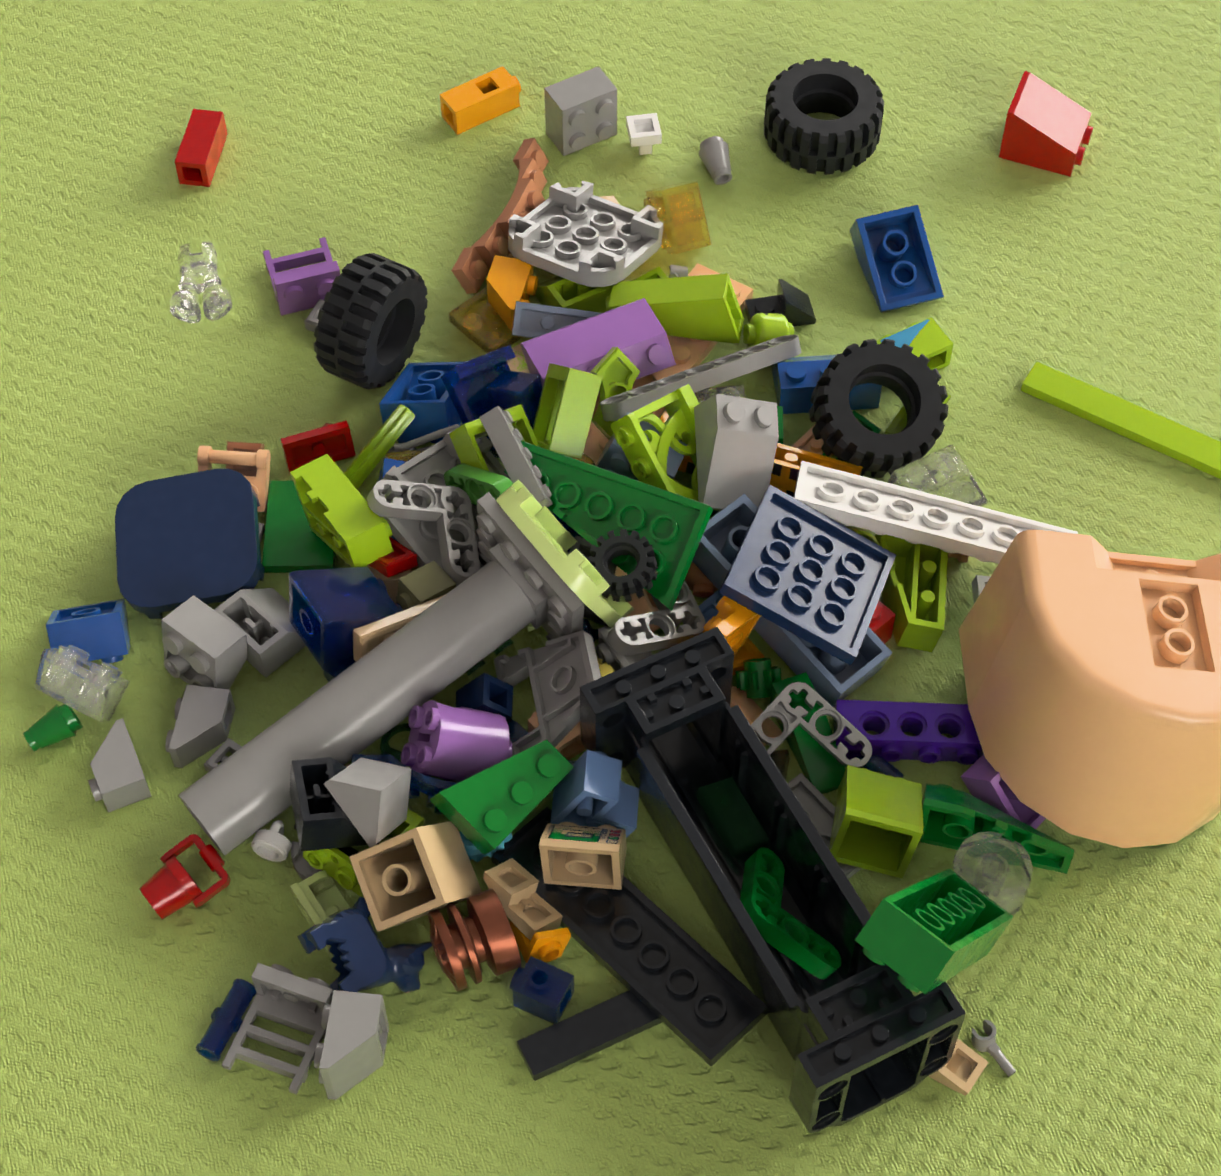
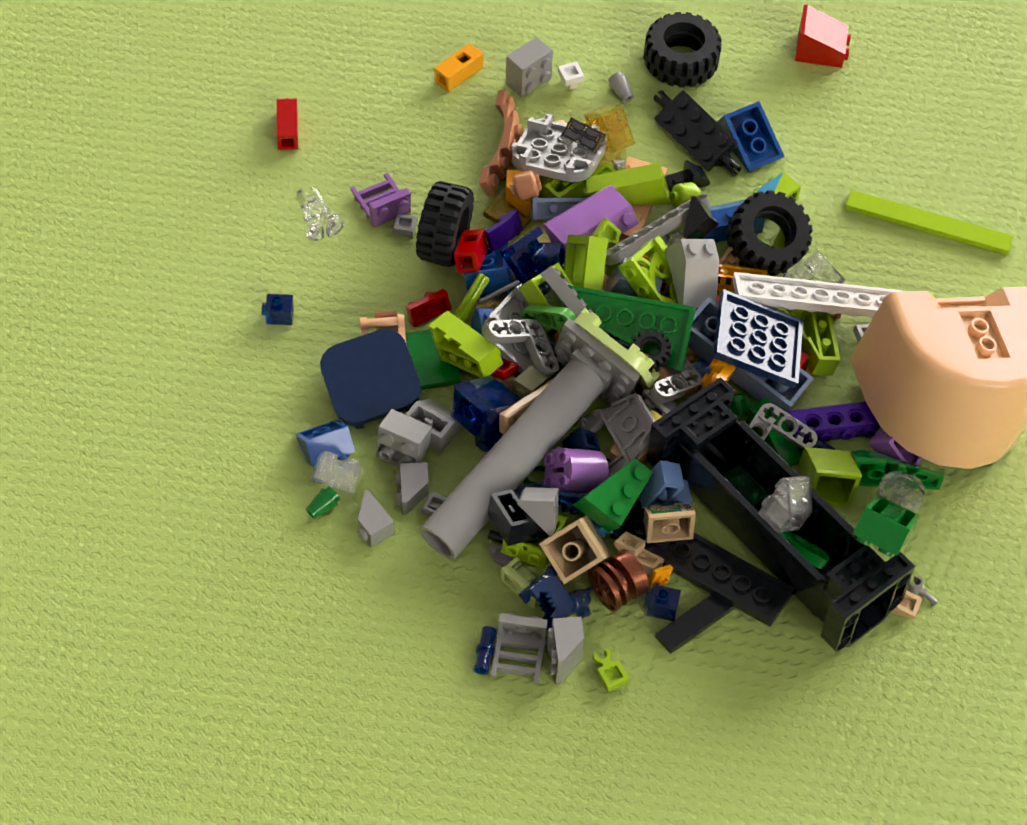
camera: 15 degrees left, 0 degrees up
(92, 416) = (278, 309): none -> clear blue brick
(174, 887) = (431, 579): red piece -> none
(271, 843) = (479, 547): white tile -> none
(402, 369) = (471, 251): none -> red brick
(421, 1098) = (610, 673): none -> lime plate
(472, 341) = (505, 230): none -> dark purple slope
(512, 281) = (526, 185): none -> nougat head
(626, 218) = (583, 135): none -> tile
(771, 372) = (699, 220): none -> black slope
(773, 863) = (788, 505): none -> clear slope
(813, 241) = (696, 131): none -> black plate

